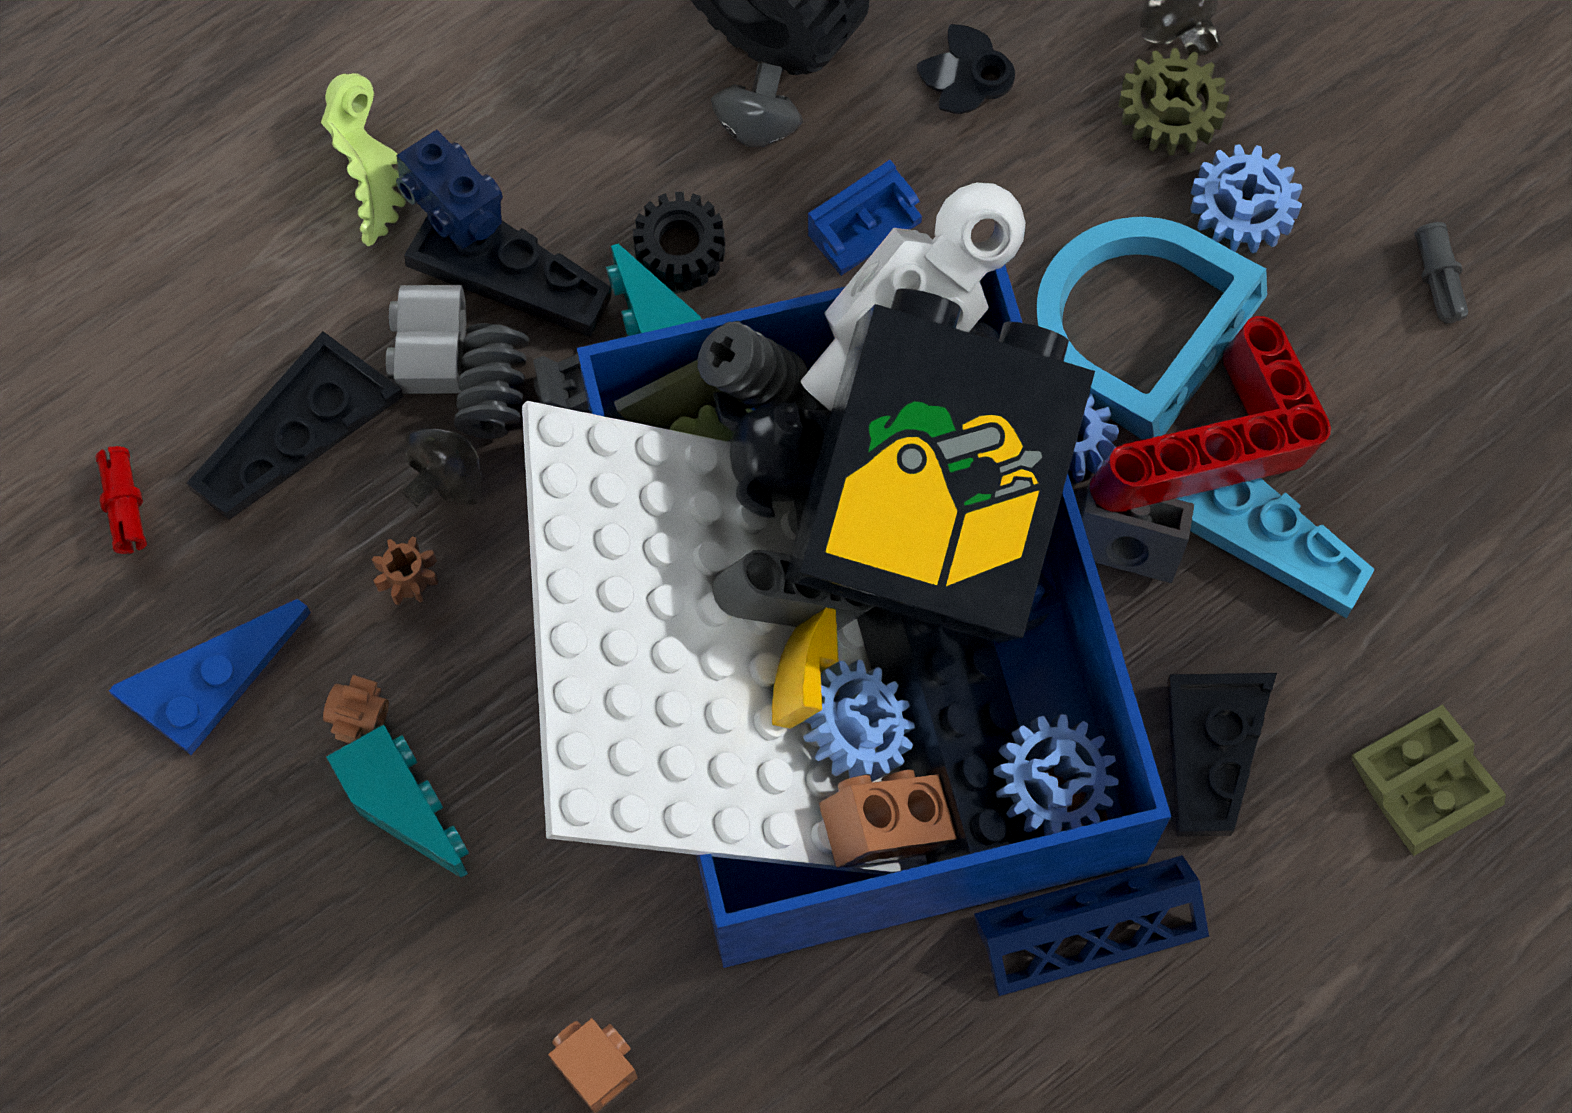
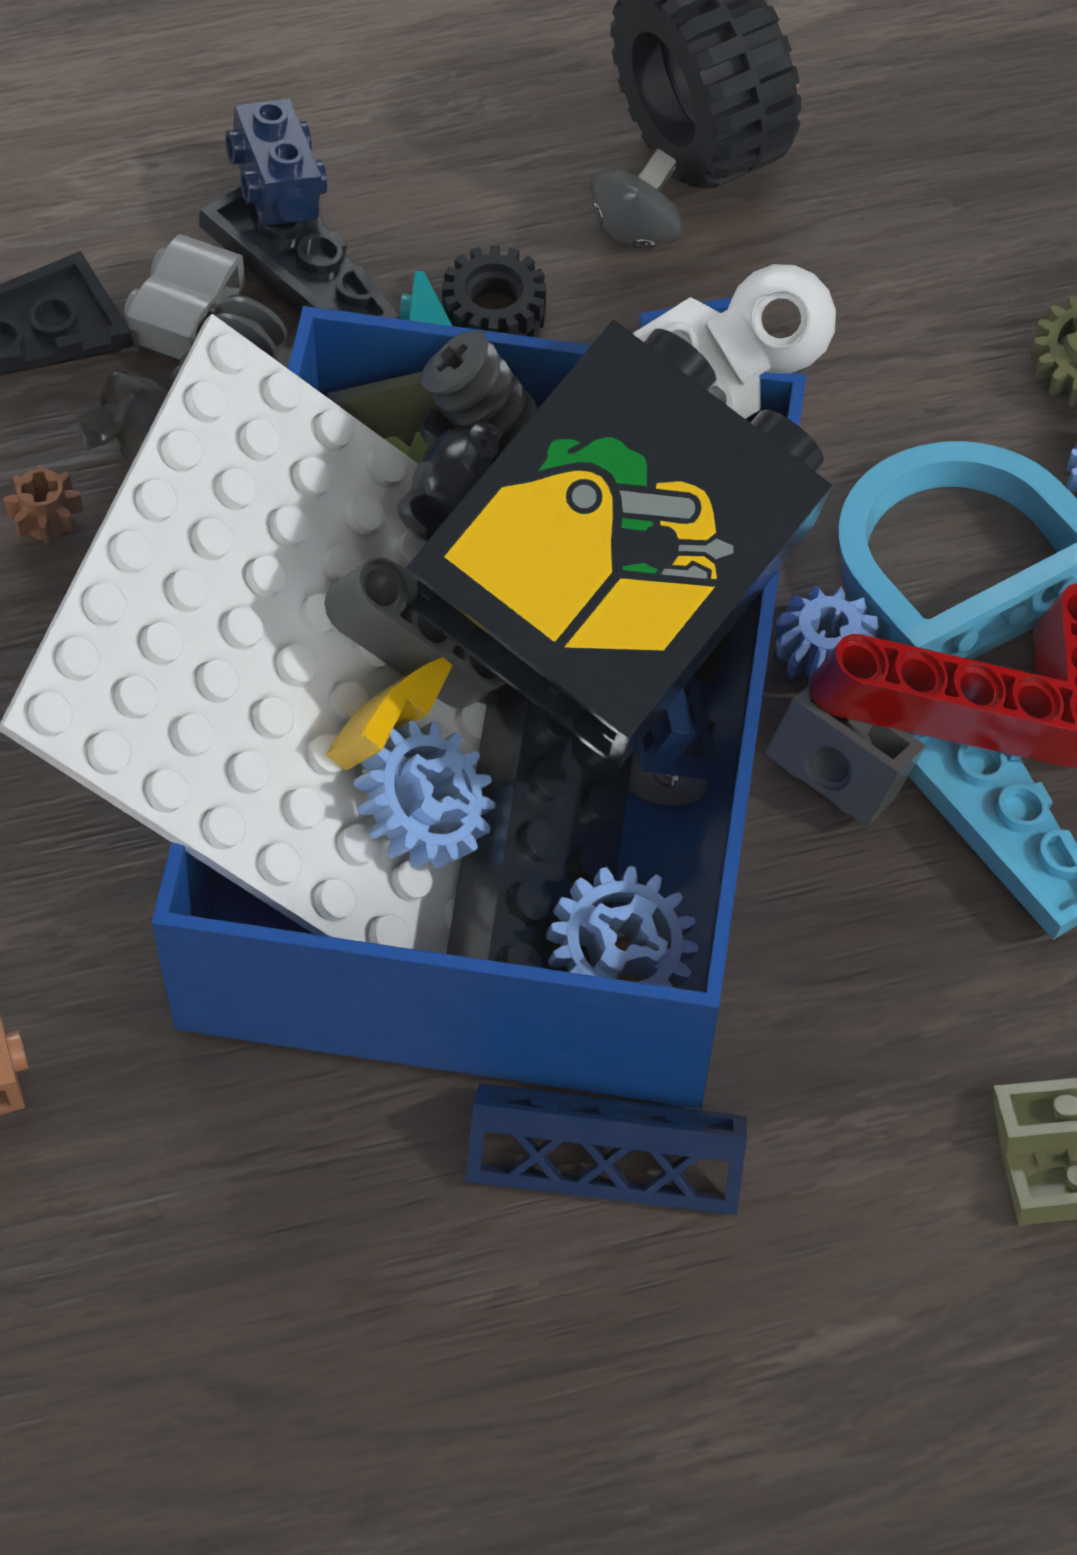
camera: 20 degrees right, 10 degrees down
(370, 161) = (207, 108): yellowish green plant -> none
(886, 818) = (420, 906): nougat brick -> none
(961, 71) = (884, 253): black plate -> none
(1213, 746) = (836, 1013): black wing -> none

